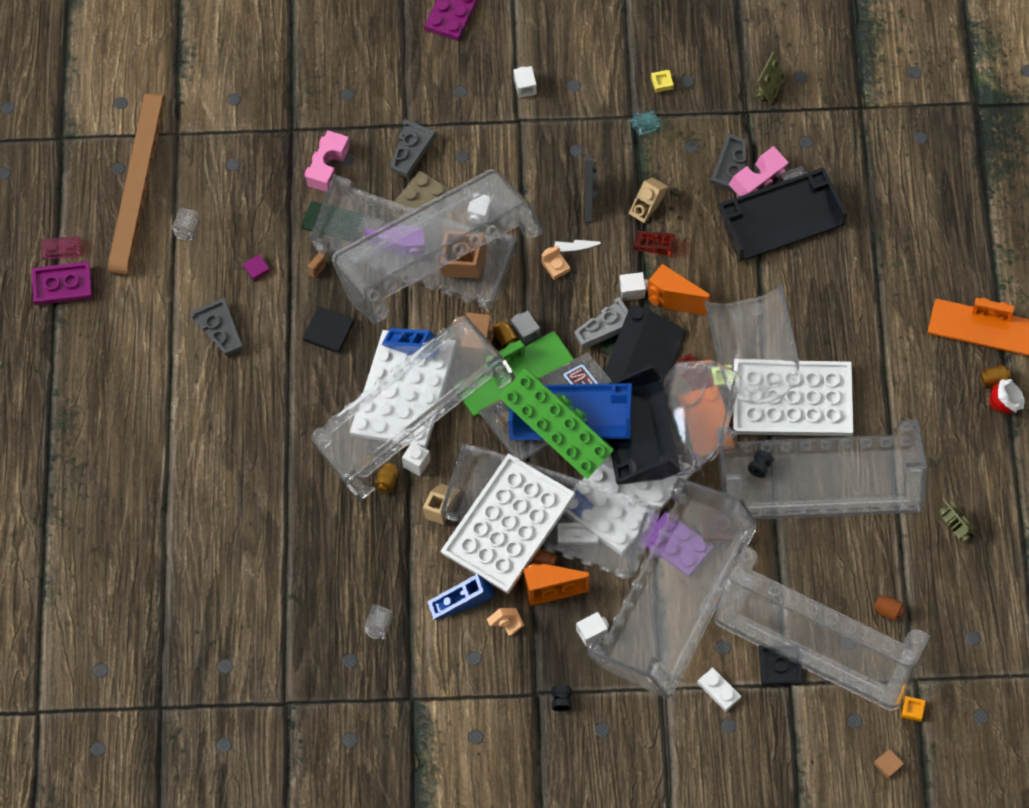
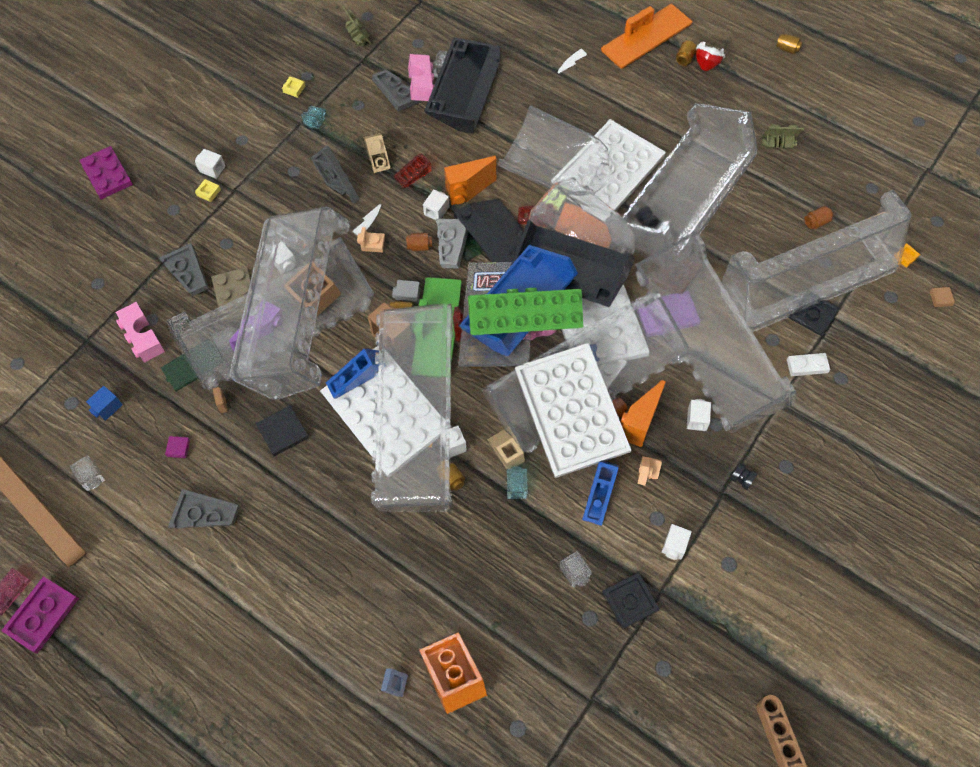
camera: 55 degrees left, 0 degrees up
(192, 555) = (394, 682): none -> sand blue plate
(230, 590) = (453, 673): none -> orange slope
(248, 187) = (103, 403): none -> blue brick
(386, 680) = (630, 601): none -> black tile
(418, 530) = (517, 483): none -> clear light blue brick
(459, 682) = (676, 542): none -> white brick
(498, 101) = (207, 190): none -> light yellow plate
(583, 300) = (419, 242): none -> dark orange brick
(899, 284) = (571, 60): none -> white sticker

